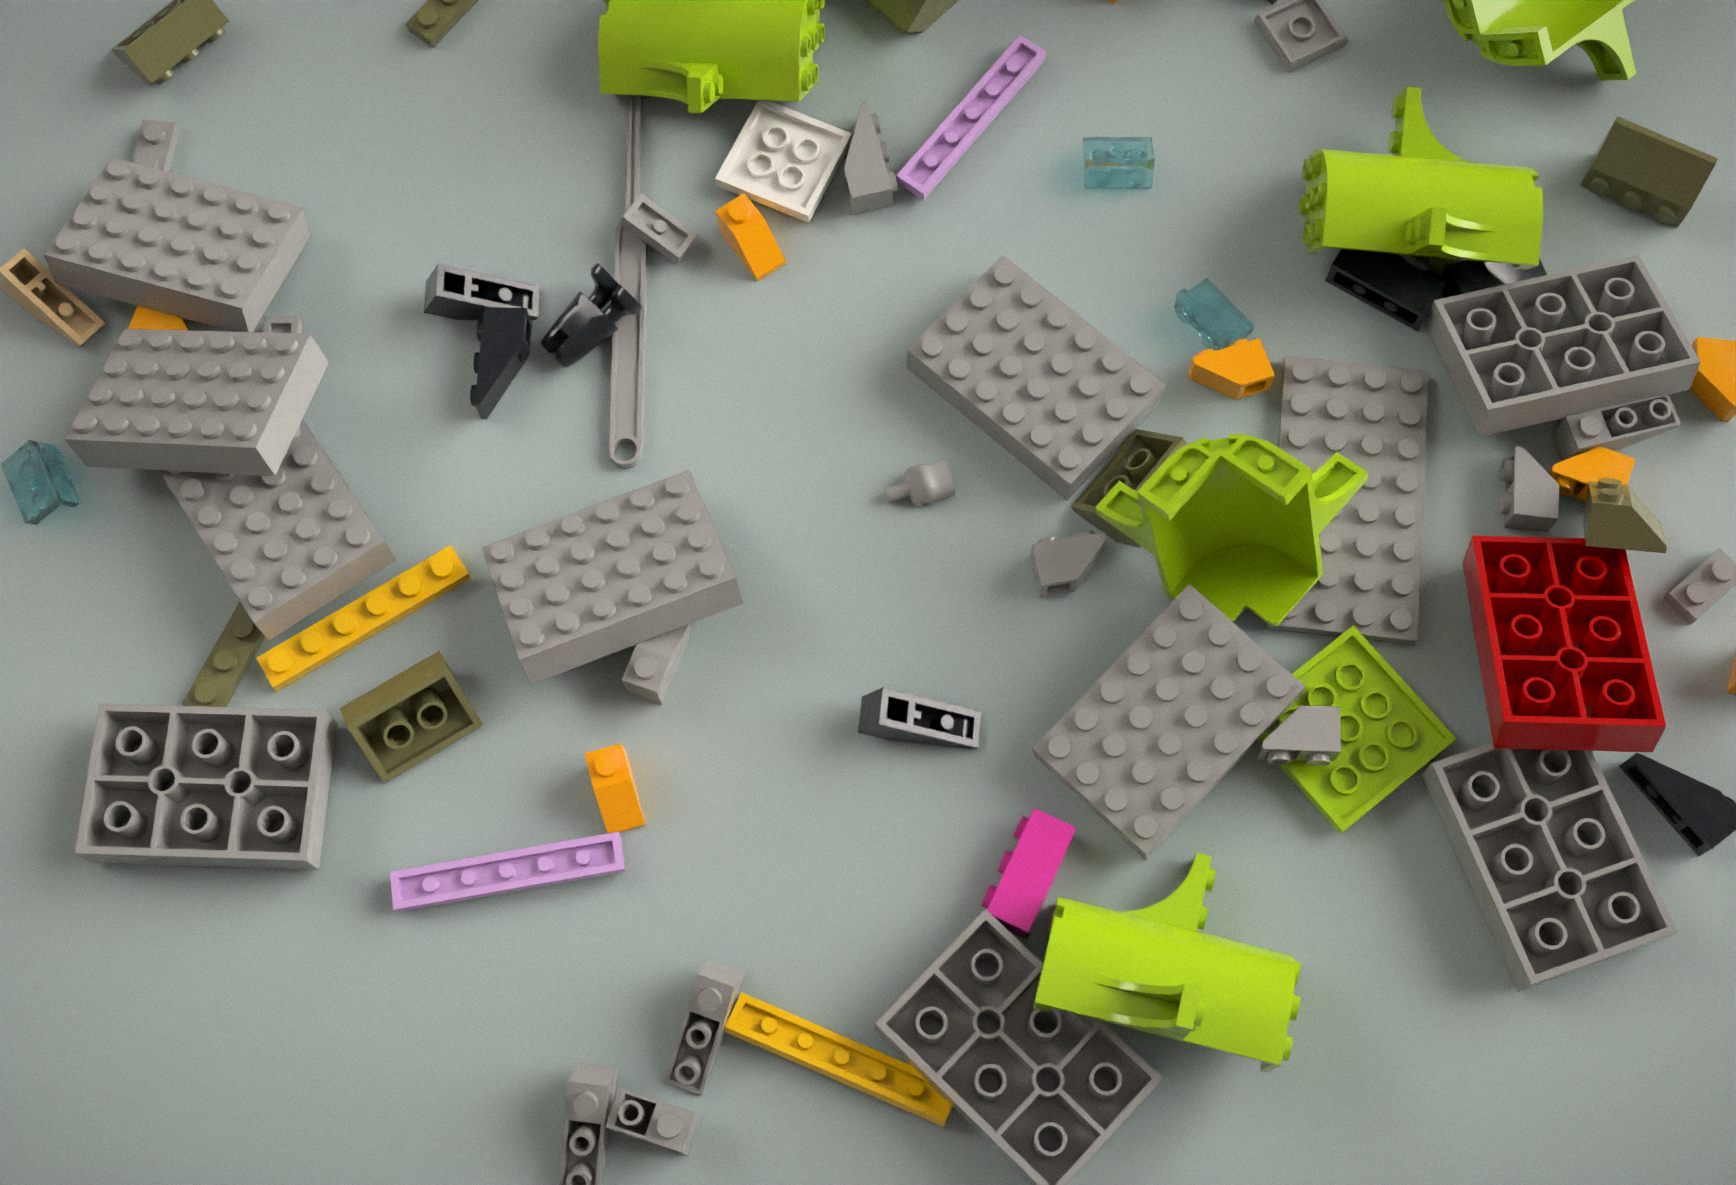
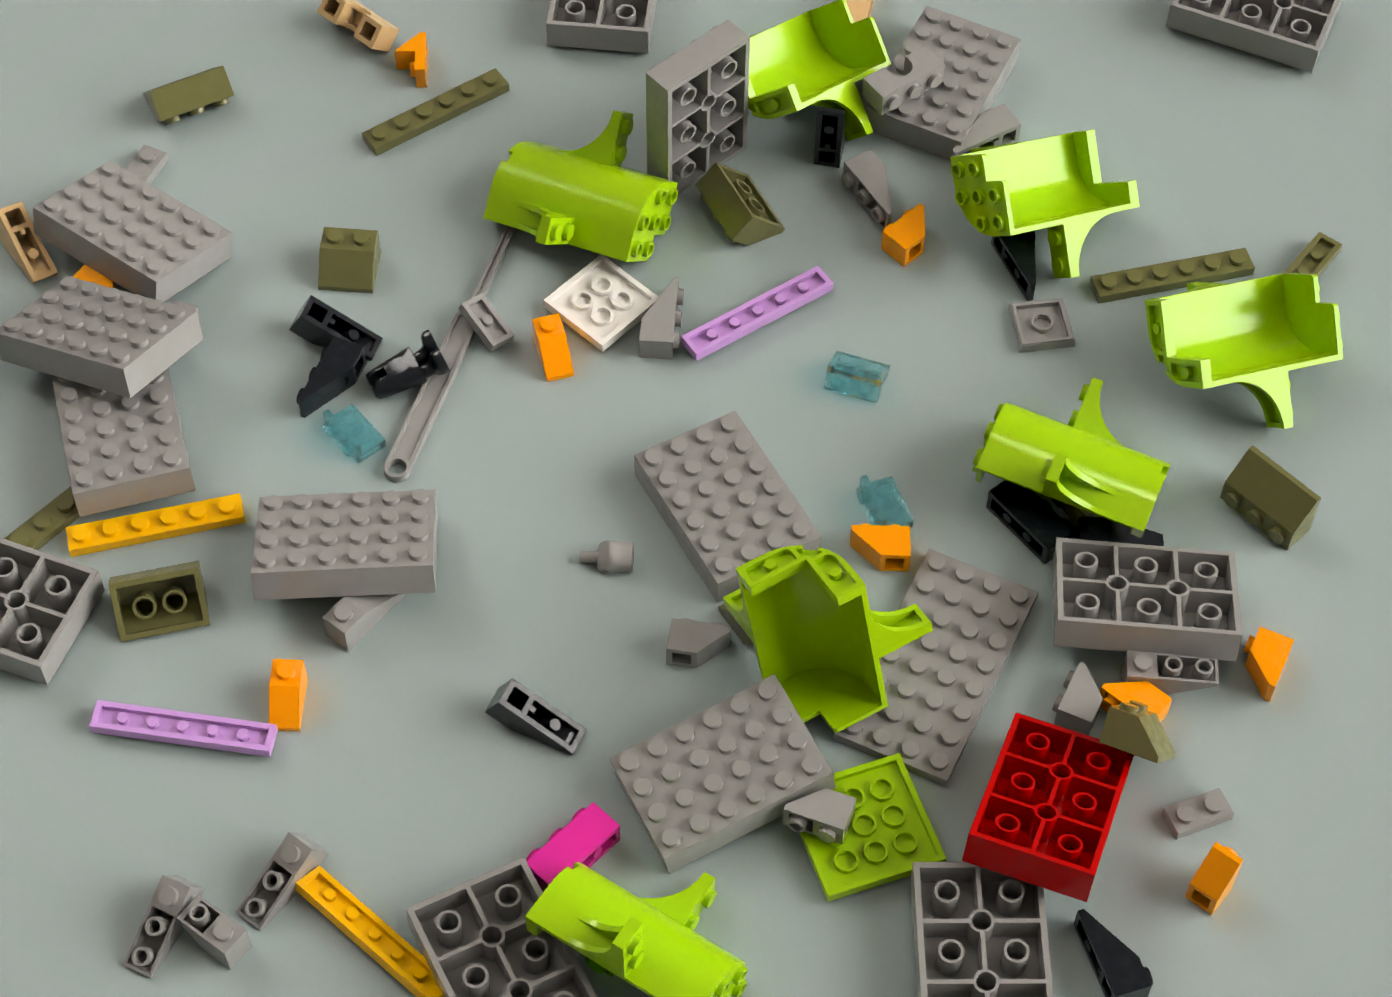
camera: 15 degrees right, 15 degrees down
(458, 198) = (348, 259): none -> olive slope
(556, 421) = (354, 433): none -> clear light blue bracket

